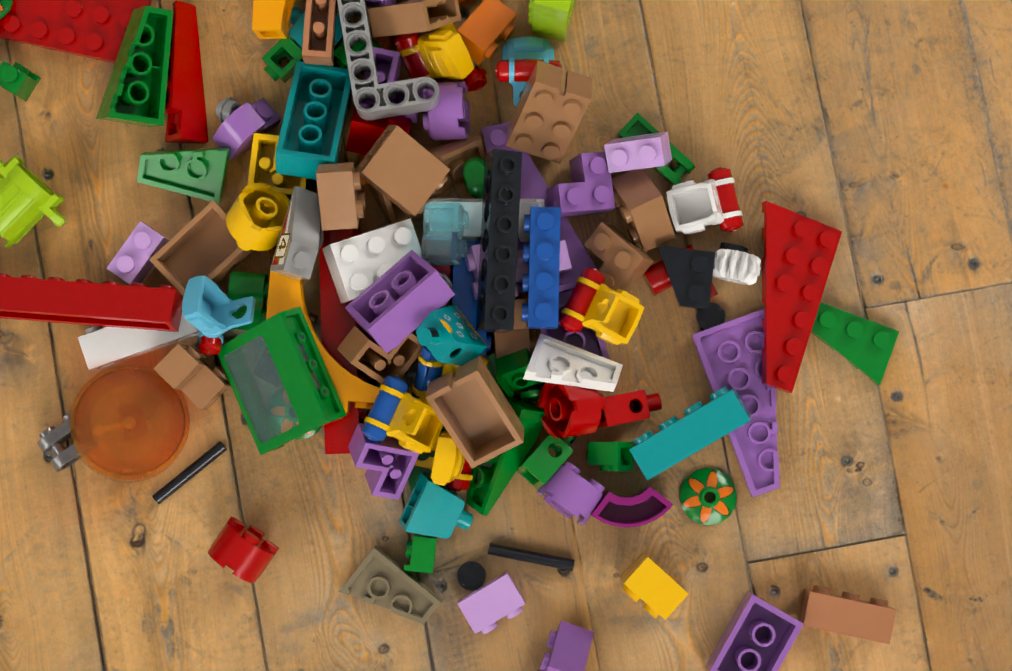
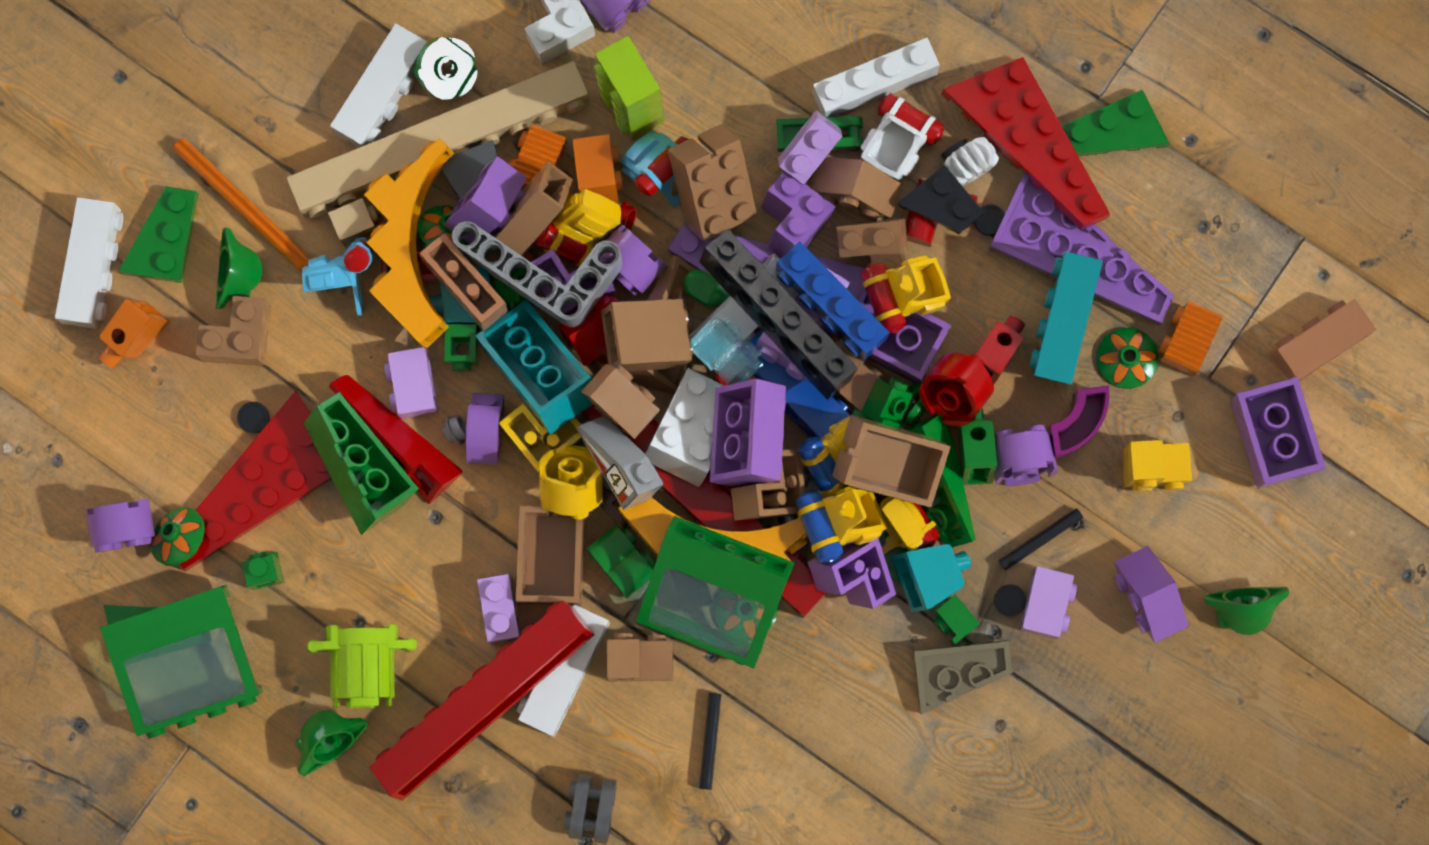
camera: 45 degrees left, 5 degrees down
(129, 423) = (627, 745): clear orange brick -> none
(187, 172) = (472, 508): green wing -> none
(212, 312) = (608, 592): medium azure piece -> none
(229, 52) = (412, 383): none -> lavender brick
(242, 550) = (815, 753): red brick -> none
(450, 336) = (809, 421): teal torso -> none
(571, 366) = (925, 356): white wing -> none
(610, 455) = (1022, 398): green brick -> none
(729, 150) = (876, 79): none -> white brick
(762, 525) = (1190, 338): none -> orange brick

